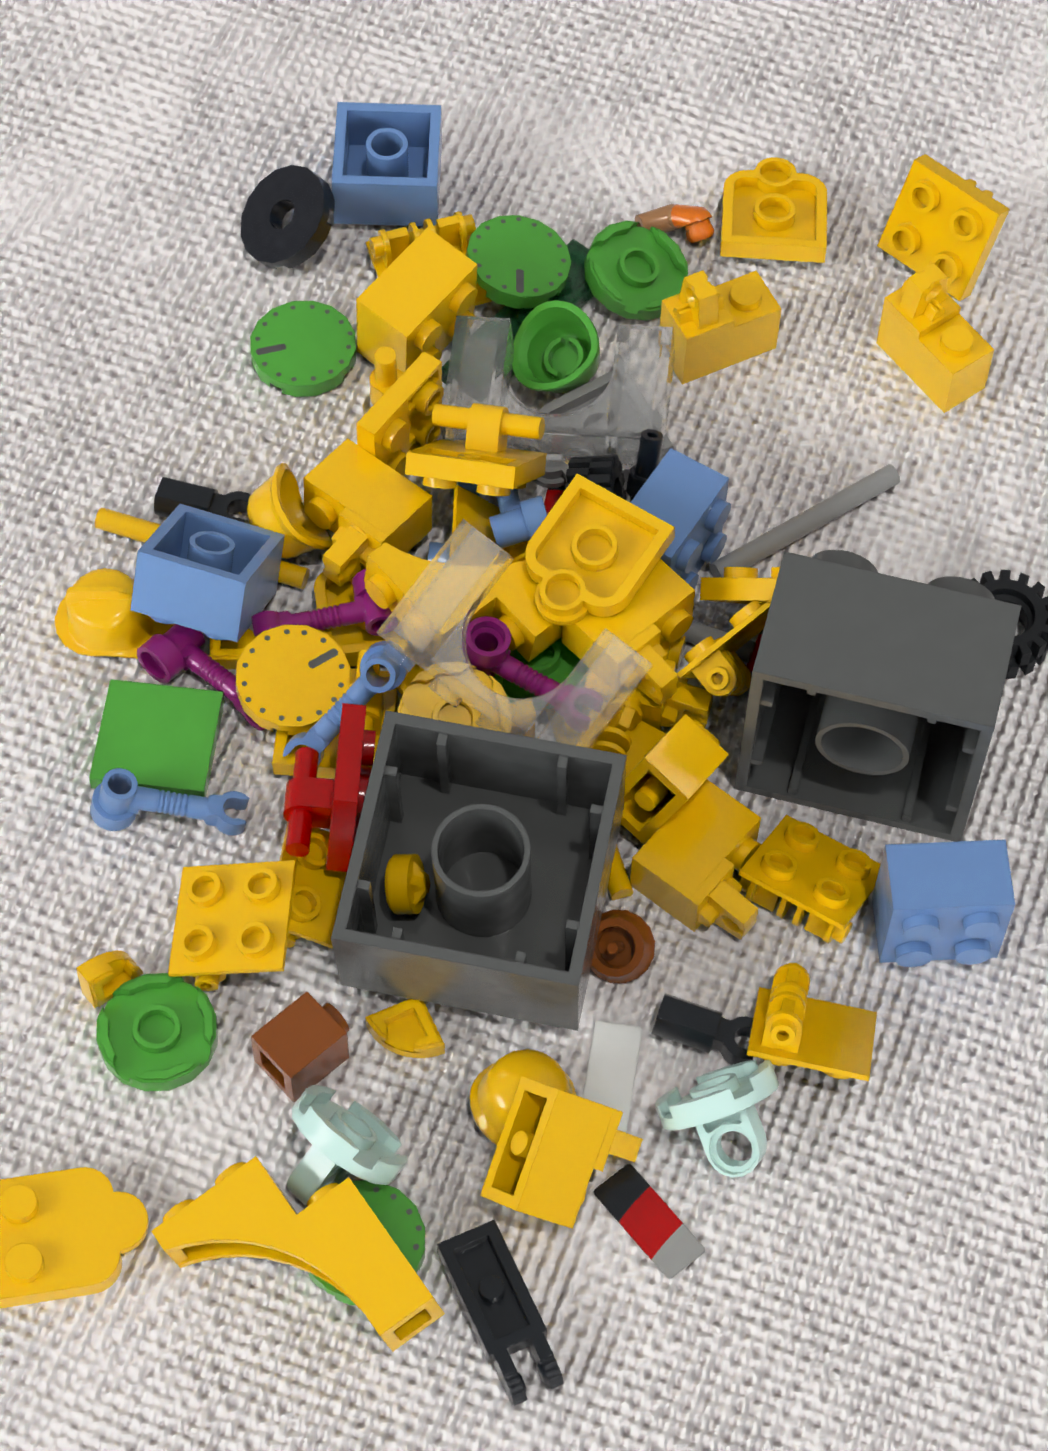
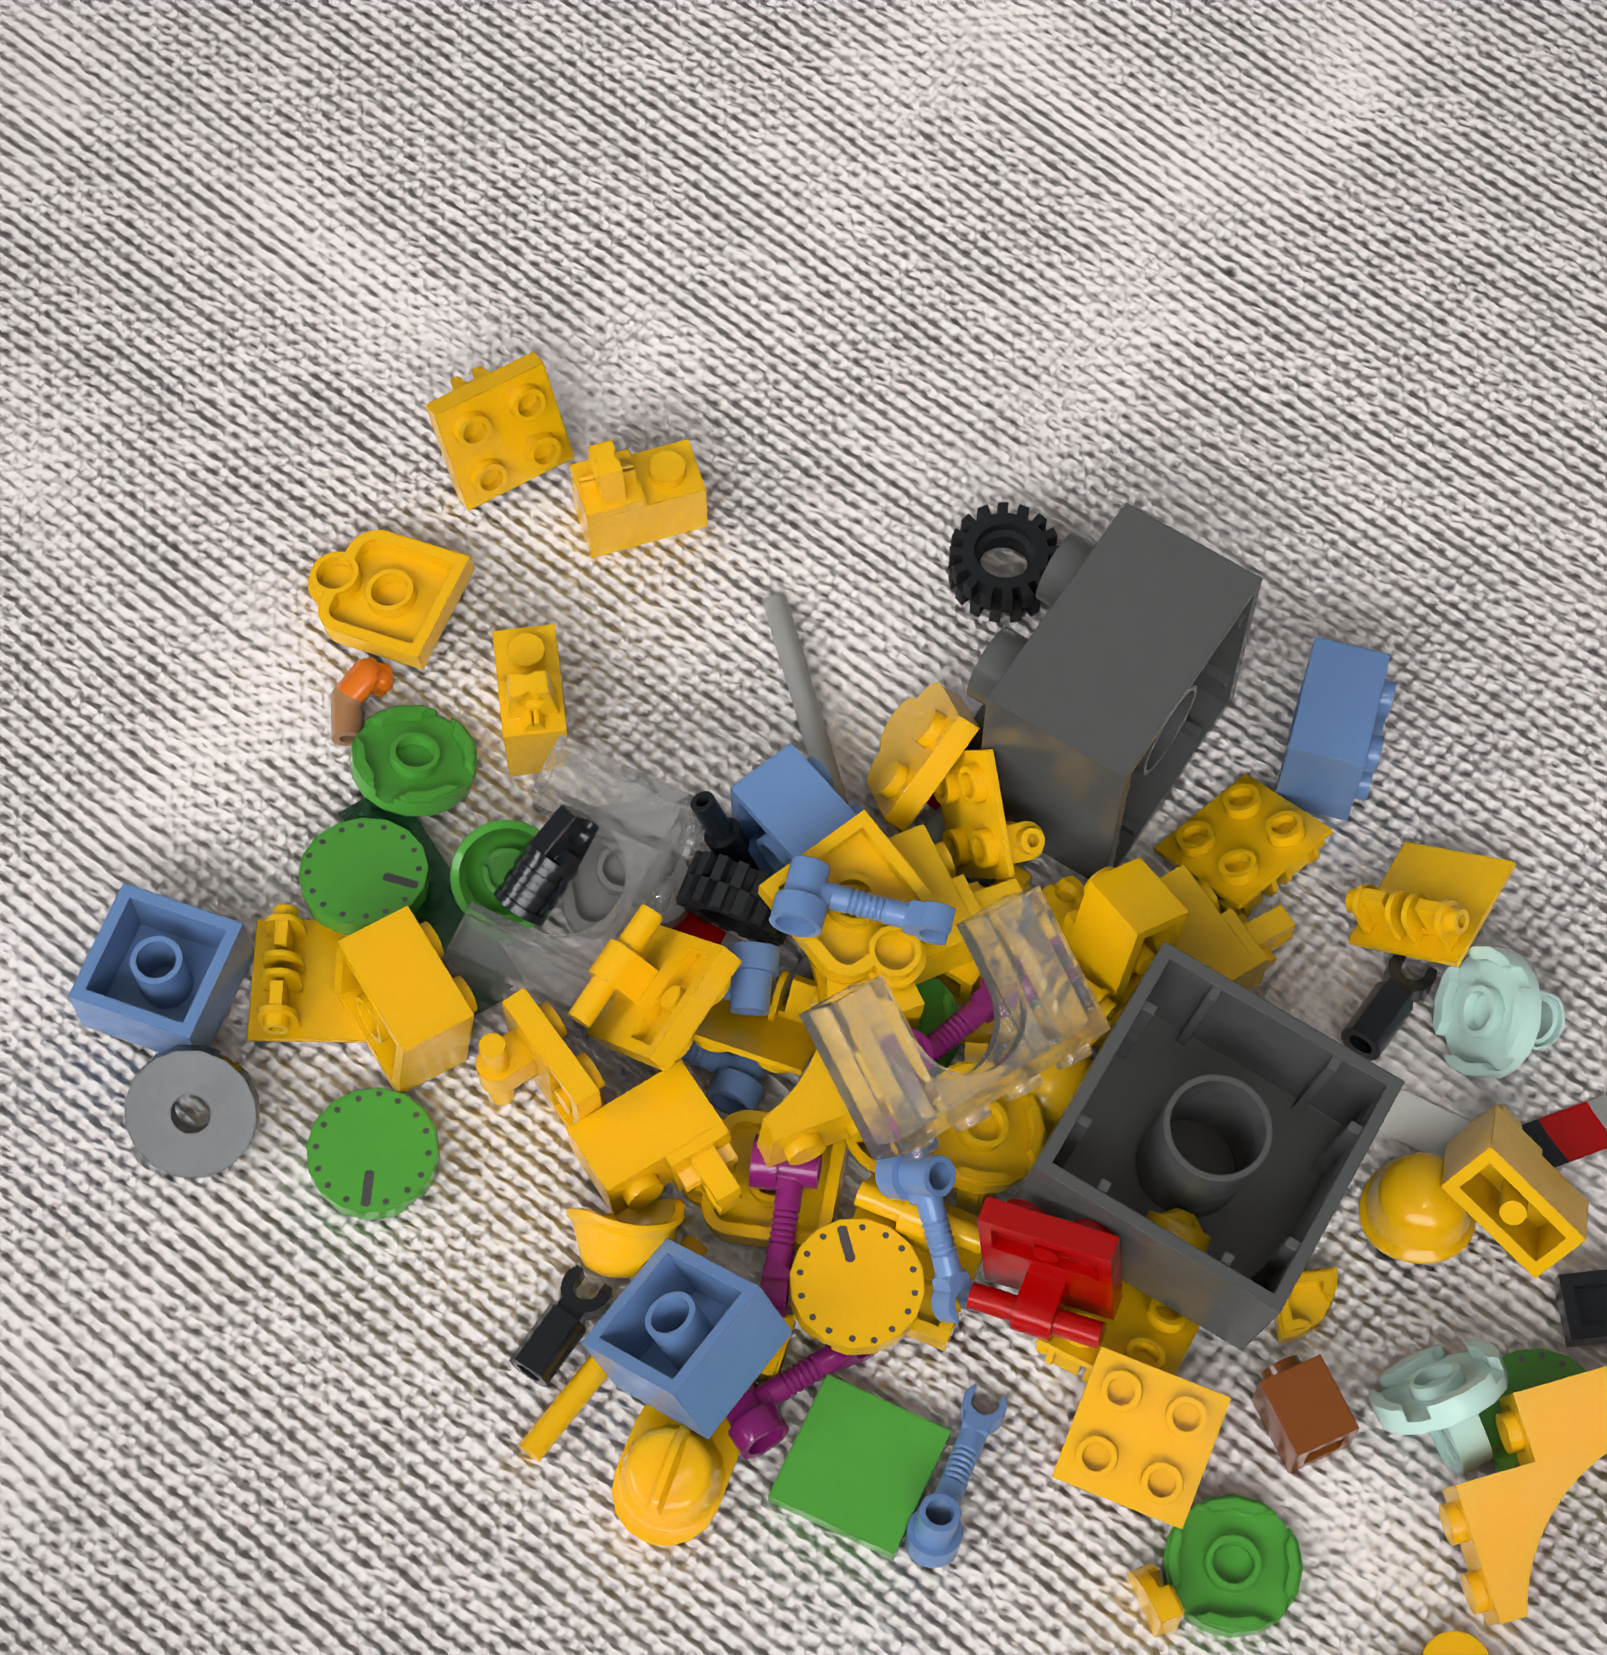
camera: 70 degrees left, 5 degrees up
(559, 357) = (547, 865): none -> black hinge
(577, 504) = (808, 894): none -> medium blue brick

